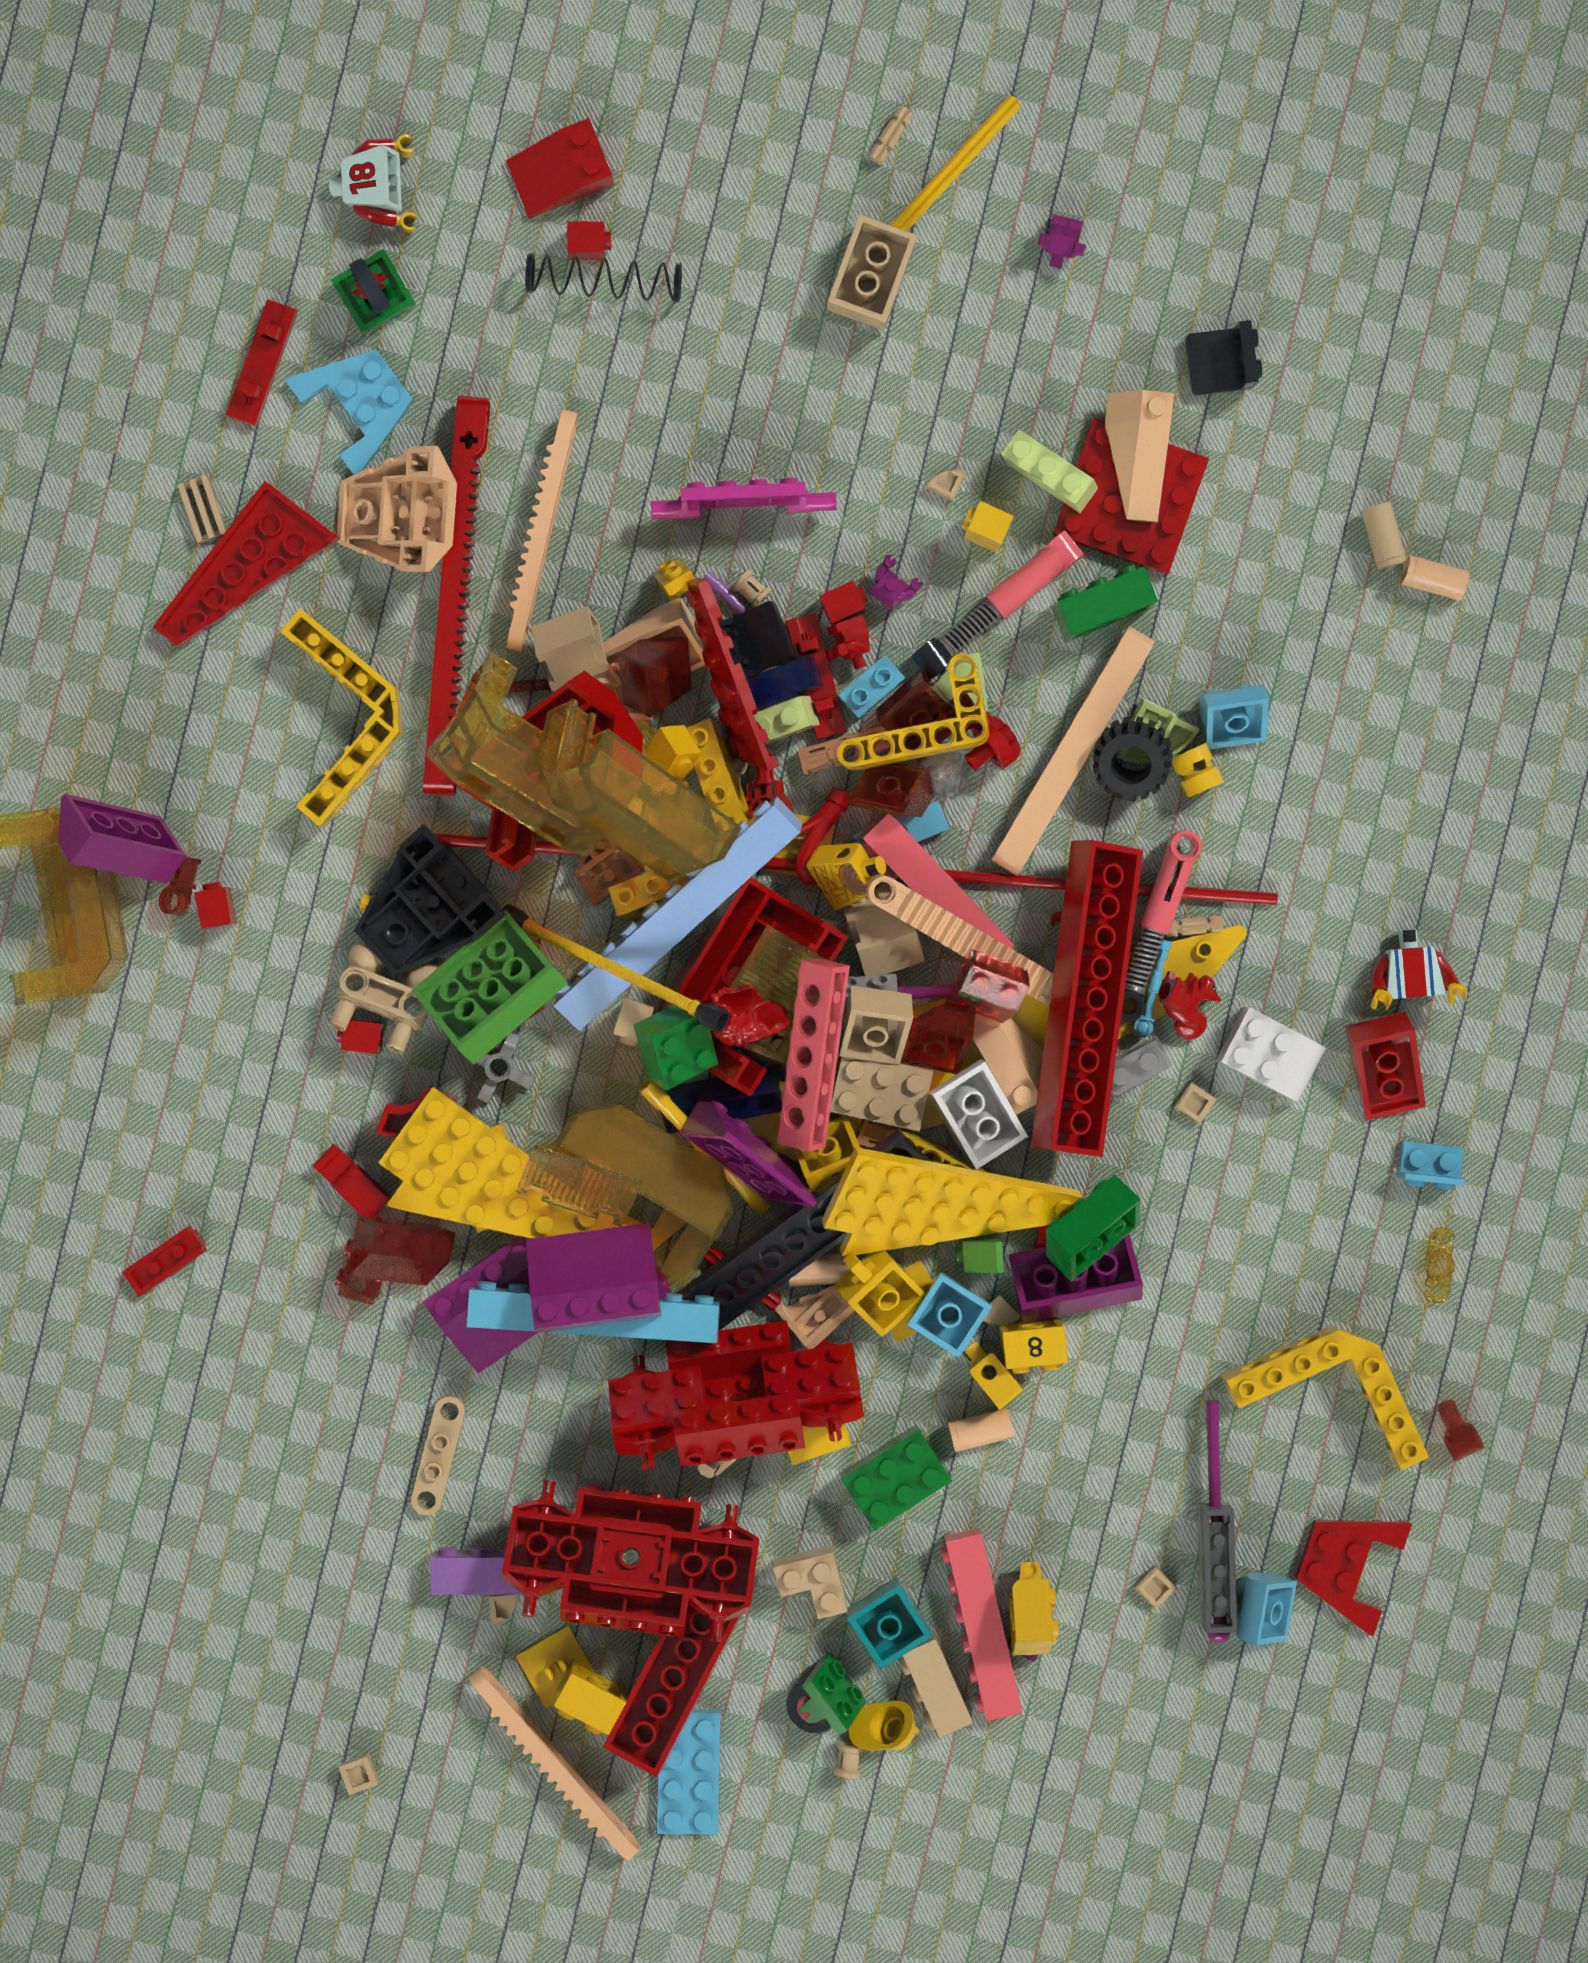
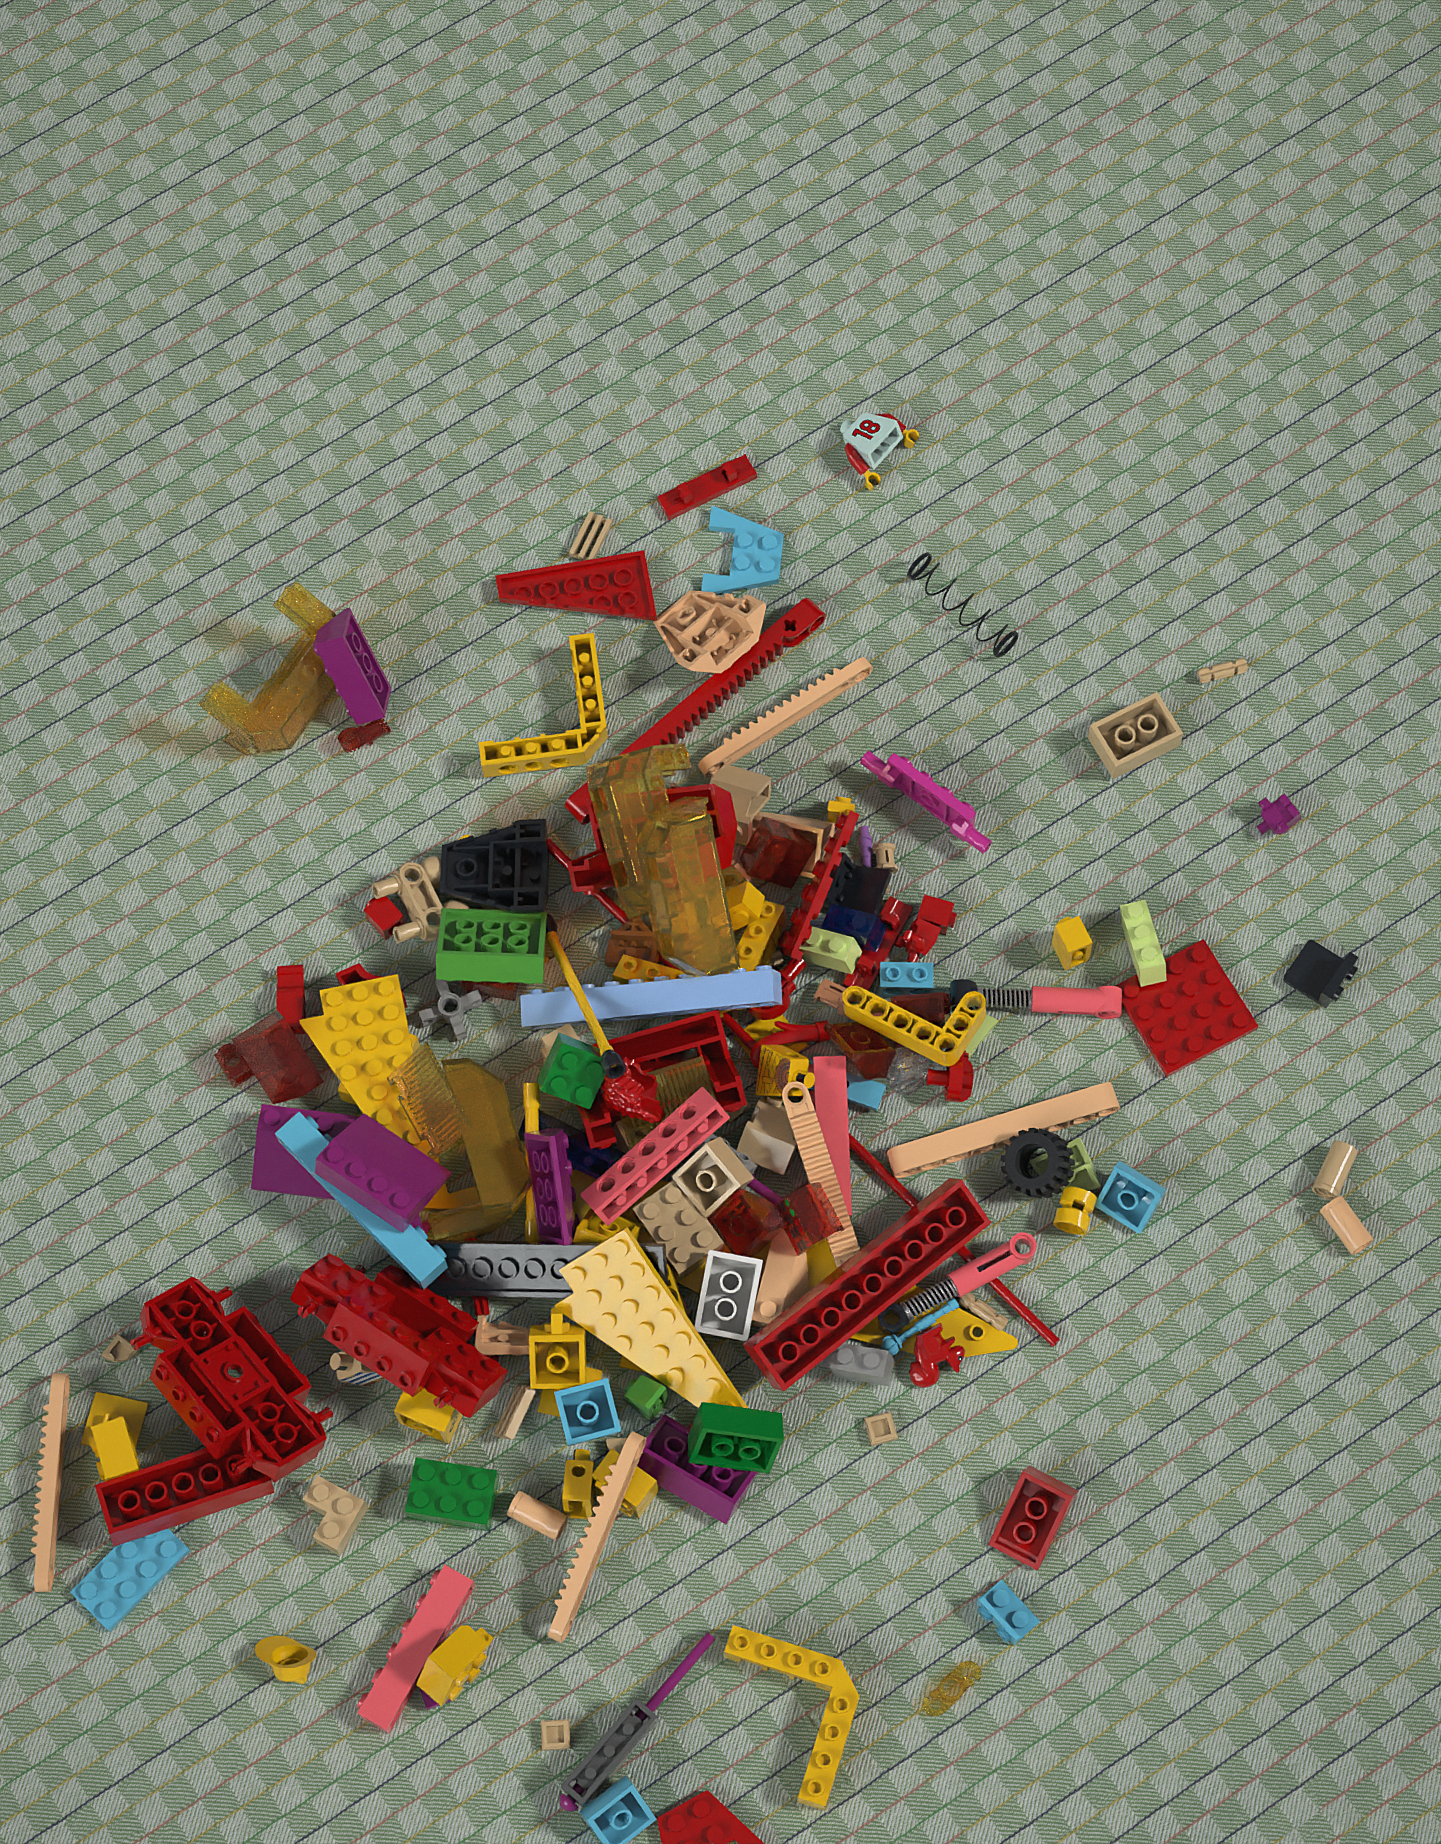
camera: 45 degrees right, 20 degrees down
(165, 1260) = (130, 945): red hinge -> none
(215, 906) = (371, 764): red brick -> none
(373, 291) = (813, 500): green plate -> none
(438, 1455) = (175, 1216): tan plate -> none
(468, 1572) = (118, 1304): medium lavender brick -> none
(560, 169) = (995, 525): red slope -> none
(588, 240) = (973, 576): red brick -> none
(823, 1271) = (526, 1311): light nougat pin -> none
(825, 1699) = (266, 1598): green plate -> none
(847, 1760) = (241, 1659): tan bush -> none
(882, 1364) = (514, 1412): none -> tan tile
(888, 1623) = (355, 1586): teal brick -> none
(889, 588) = (974, 929): magenta piece -> none
(936, 1687) = (346, 1661): tan brick -> none
(946, 483) = (1070, 901): tan tile -> none
(957, 163) = (1250, 720): yellow axle -> none
(1054, 1414) = (596, 1536): none -> light nougat gear
(1104, 602) = (1105, 1052): green brick -> none
(1139, 439) = (1218, 973): light nougat wedge -> none
(1270, 1054) = (961, 1439): white brick -> none
(1413, 973) = (1105, 1468): torso -> none
(1460, 1437) = (861, 1821): clear red axle -> none

